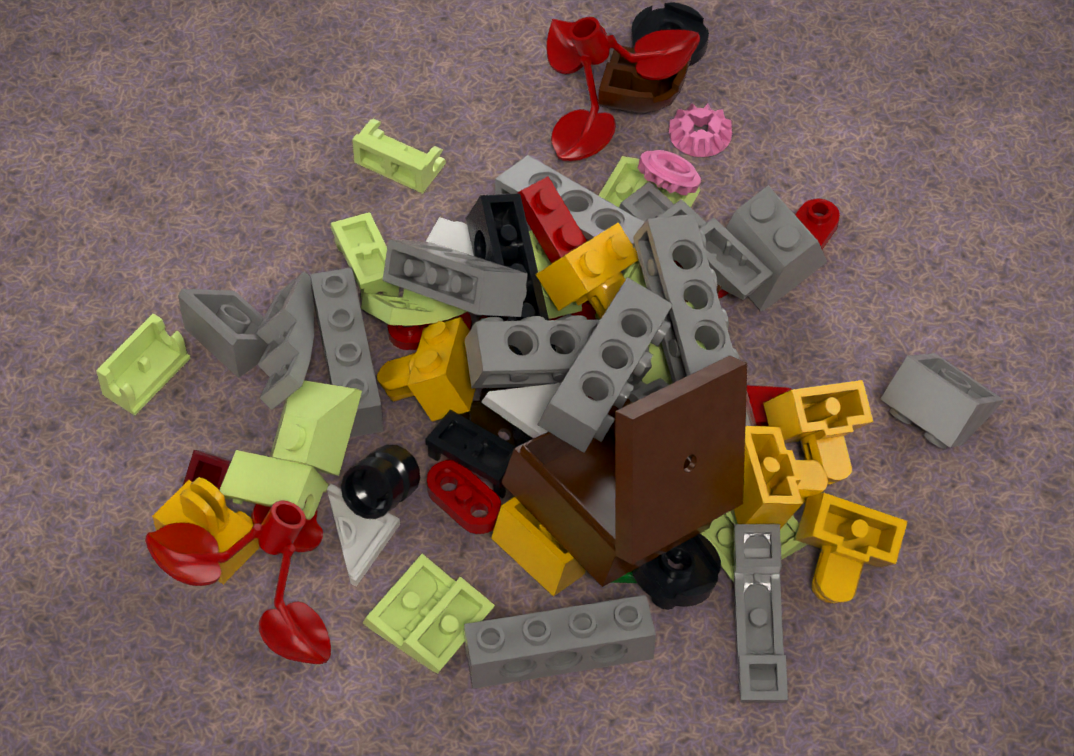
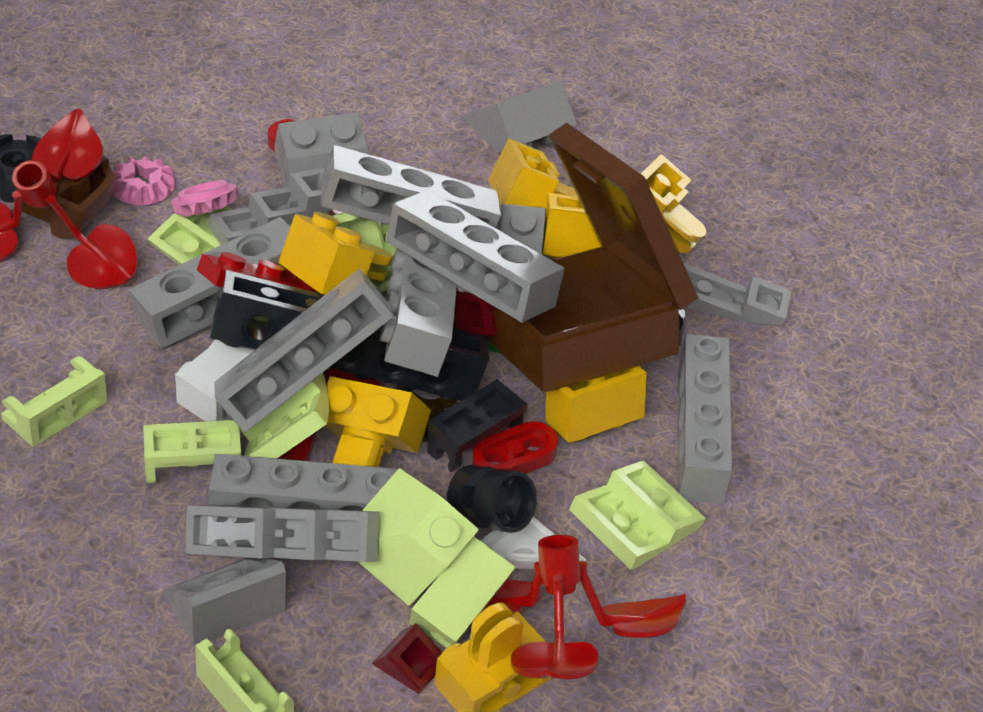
camera: 80 degrees left, 10 degrees down
(522, 406) = (474, 342): white tile -> none

